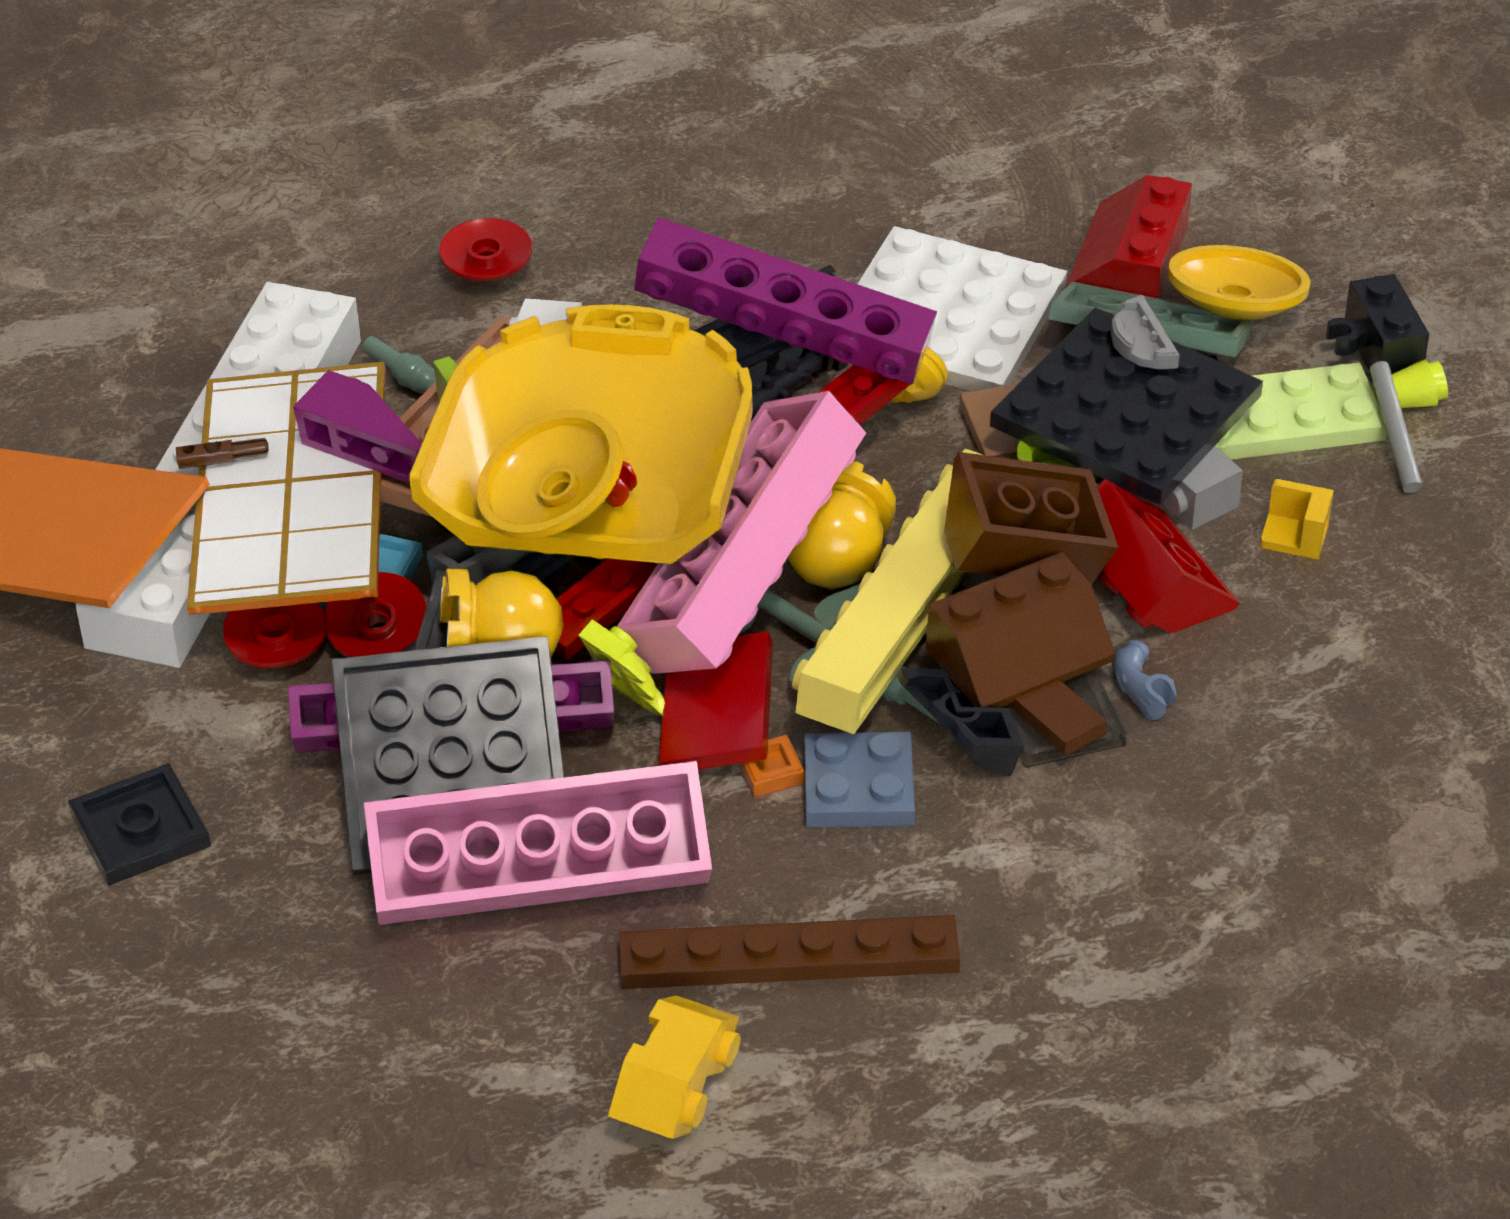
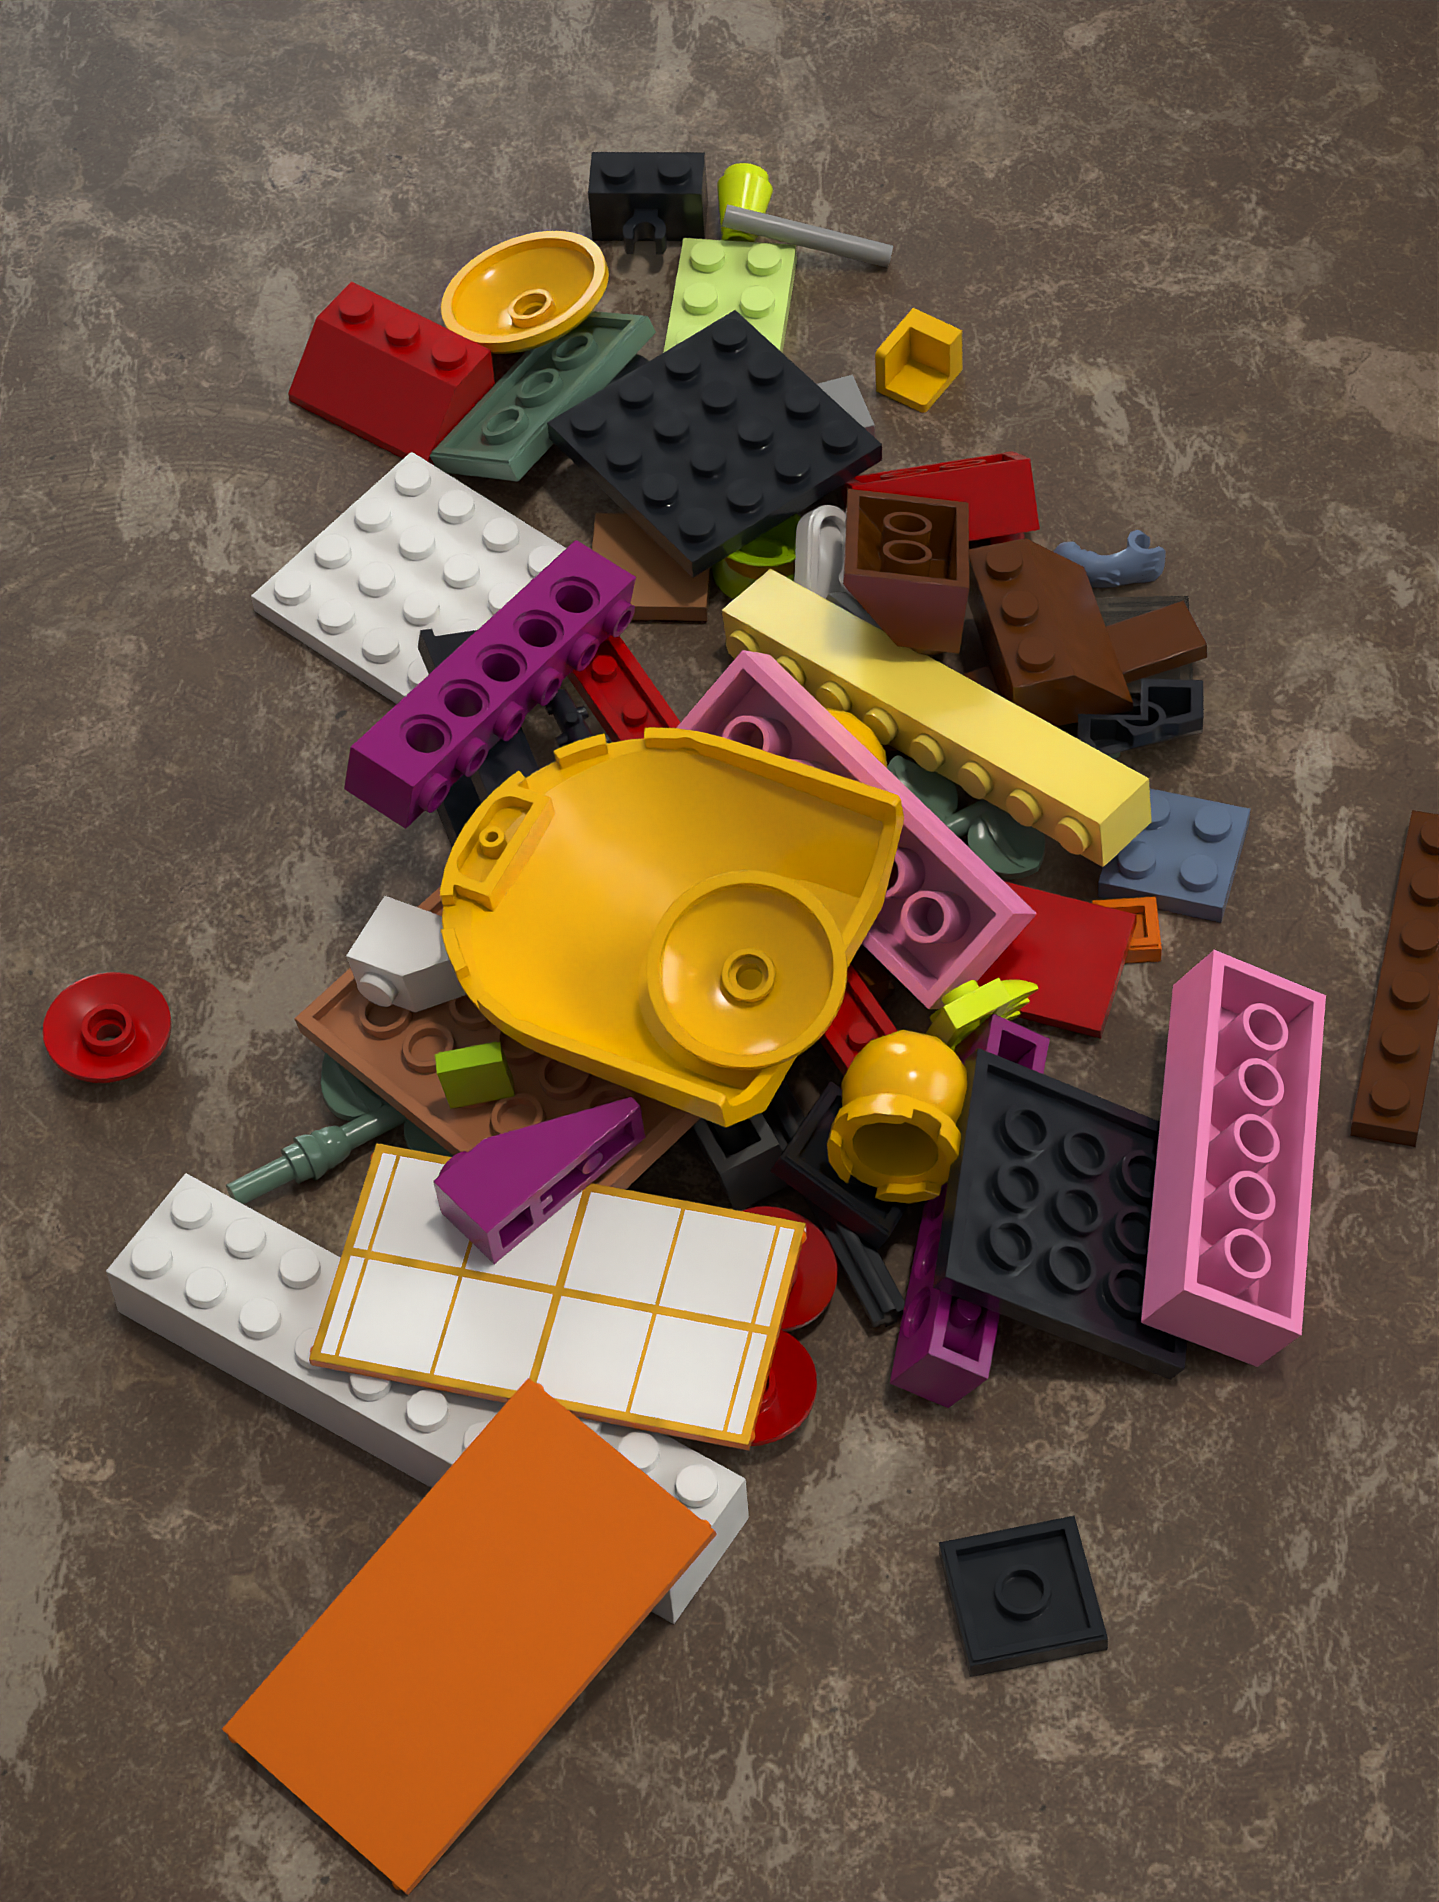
camera: 70 degrees left, 10 degrees up
(226, 452) = (483, 1345): reddish brown pin -> none
(1141, 337) = (636, 387): light grey tile -> none

